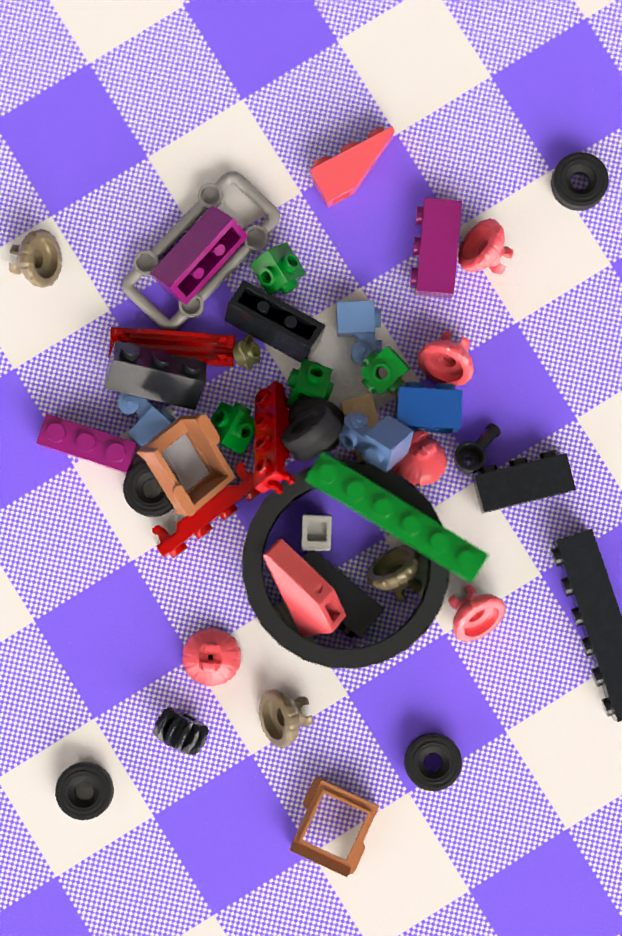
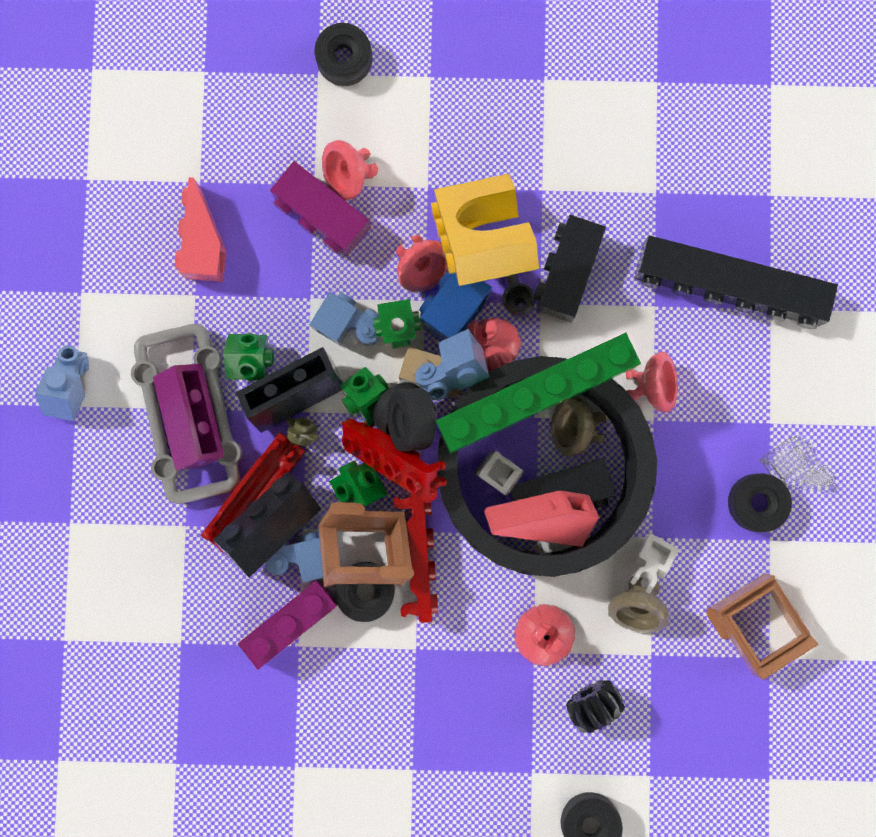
camera: 55 degrees left, 0 degrees up
(37, 258) = (96, 560): dark tan hair -> none
(157, 137) = (61, 388): none -> medium blue brick
(330, 704) = (654, 560): none -> white plate
(481, 773) = (798, 467): none -> clear slope
(482, 407) = (488, 253): none -> yellow arch

